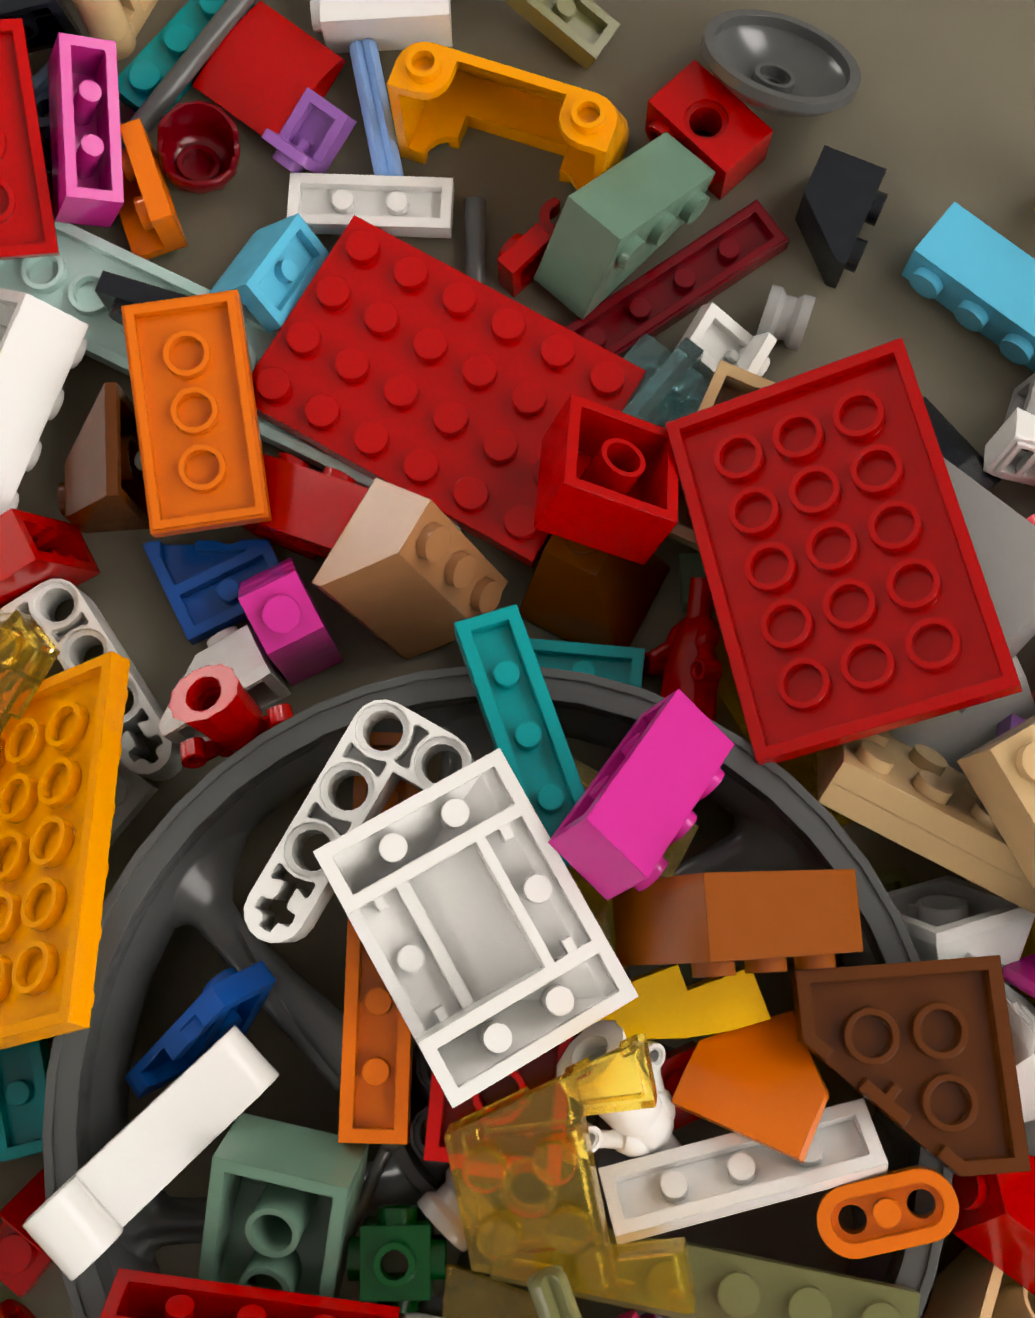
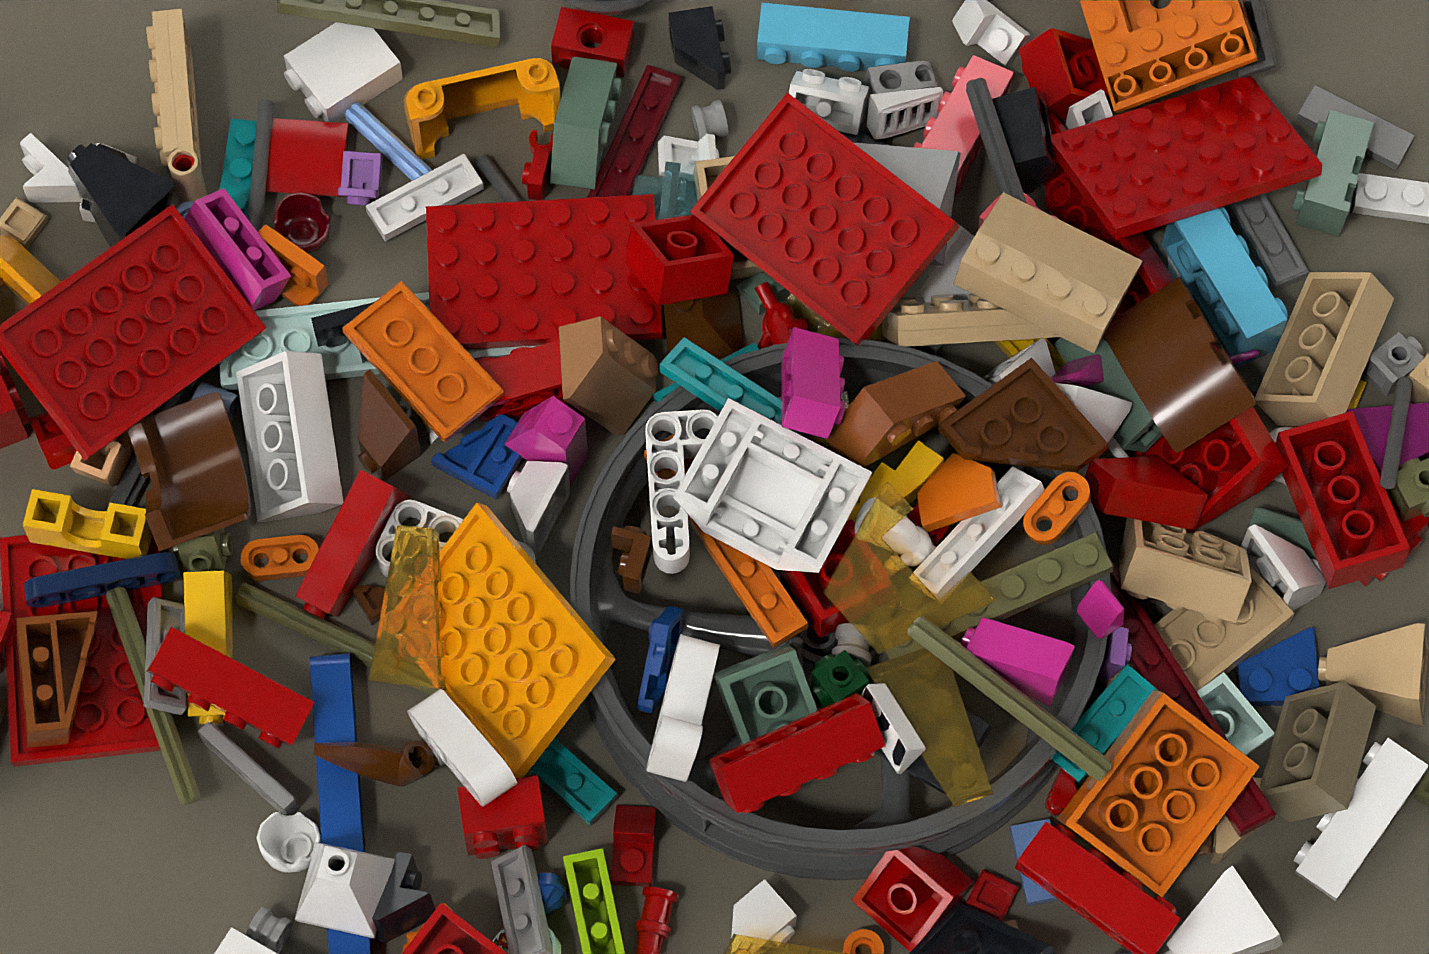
camera: 40 degrees left, 10 degrees down
(222, 710) = (560, 492): red piece -> none
(230, 884) = (635, 561): none -> reddish brown bracket
(274, 270) = (392, 259): medium azure panel -> none
(958, 385) = (835, 101): none -> white brick

